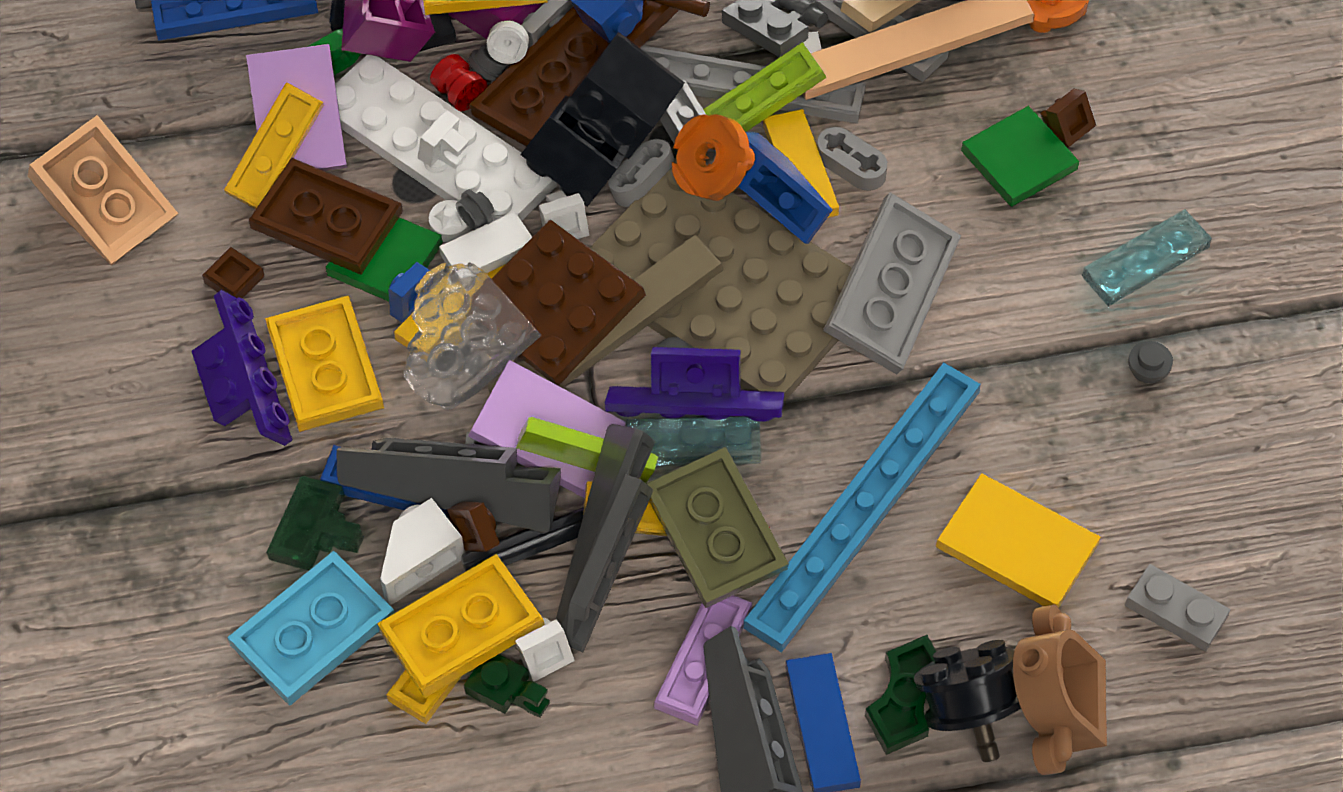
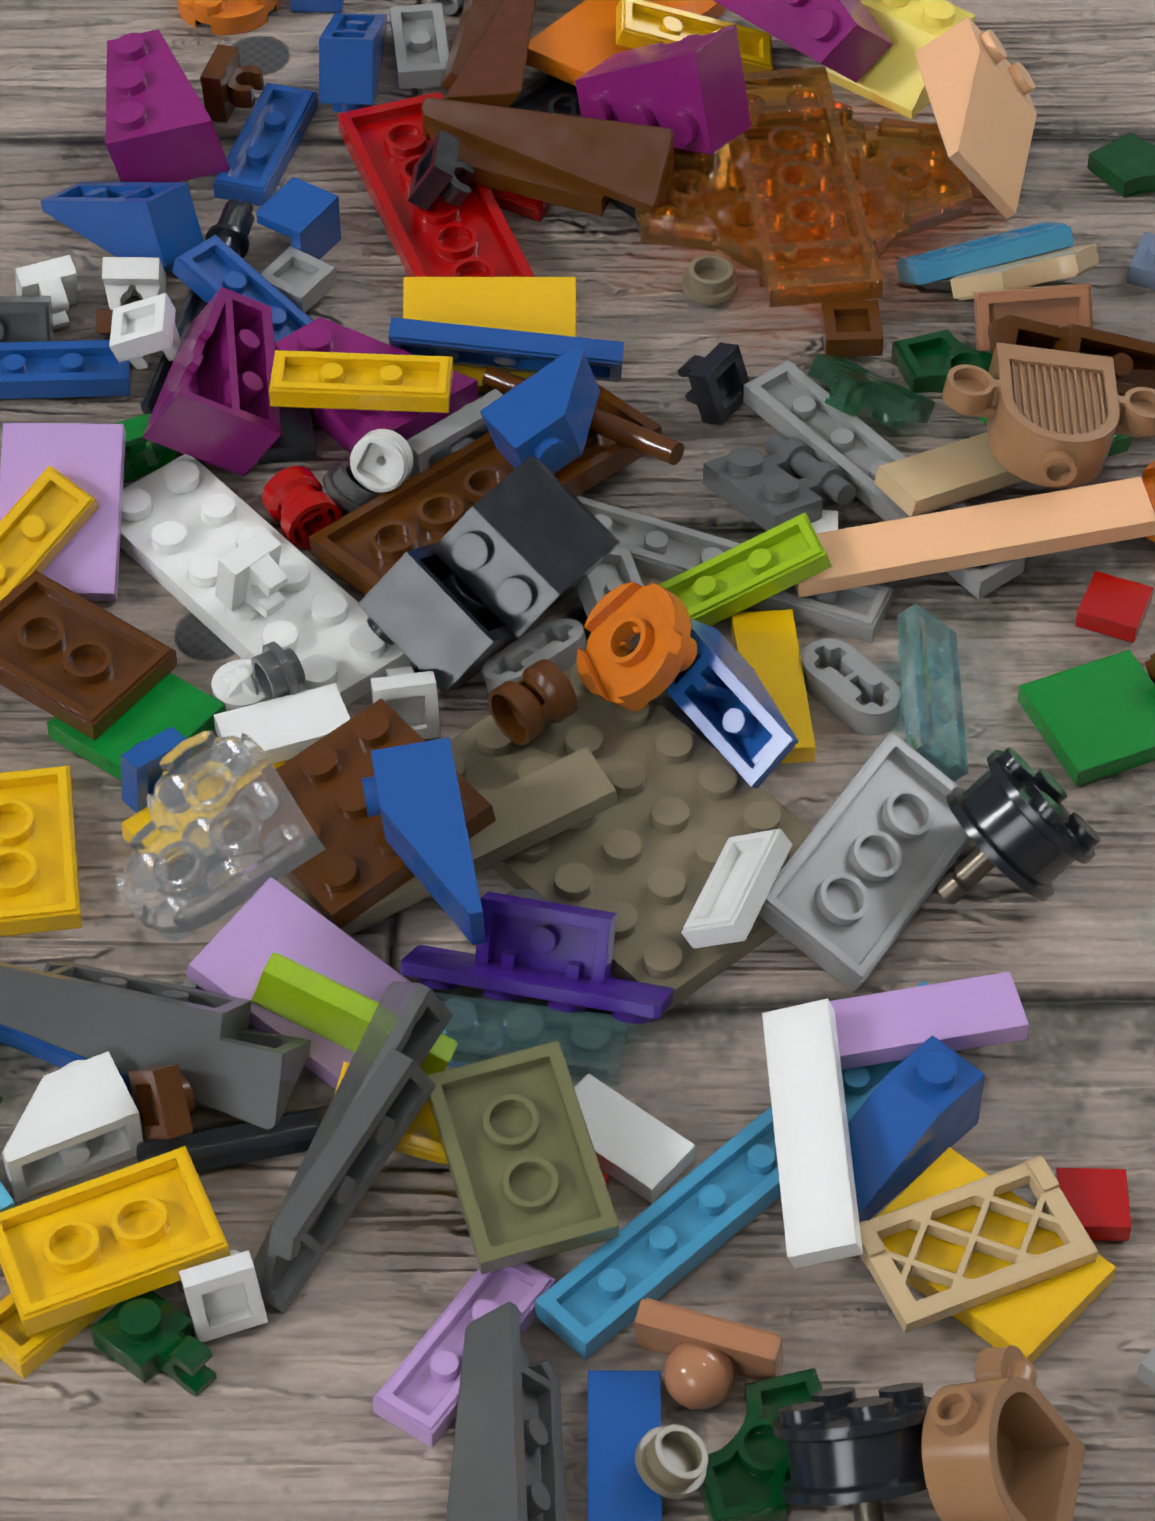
camera: 10 degrees right, 10 degrees down
(608, 311) = (426, 825): none -> blue slope
(654, 203) = (532, 702): none -> reddish brown wheel
(779, 501) = (631, 1141): none -> white tile
(813, 319) = (736, 888): none -> white tile
(853, 712) = (672, 1461): none -> dark tan plate
(857, 637) = (705, 1352): none -> nougat tile
(896, 481) = (811, 1134): none -> white tile
(907, 155) = (932, 691): none -> clear light blue plate
(944, 475) = (911, 1122): none -> blue slope
(948, 392) = (956, 1012): none -> lavender tile
(985, 249) = (1017, 828): none -> black wheel
(1010, 570) = (962, 1291): none -> tan window
(1012, 74) = (1114, 606): none -> red tile
(1077, 495) = (1098, 1200): none -> red tile

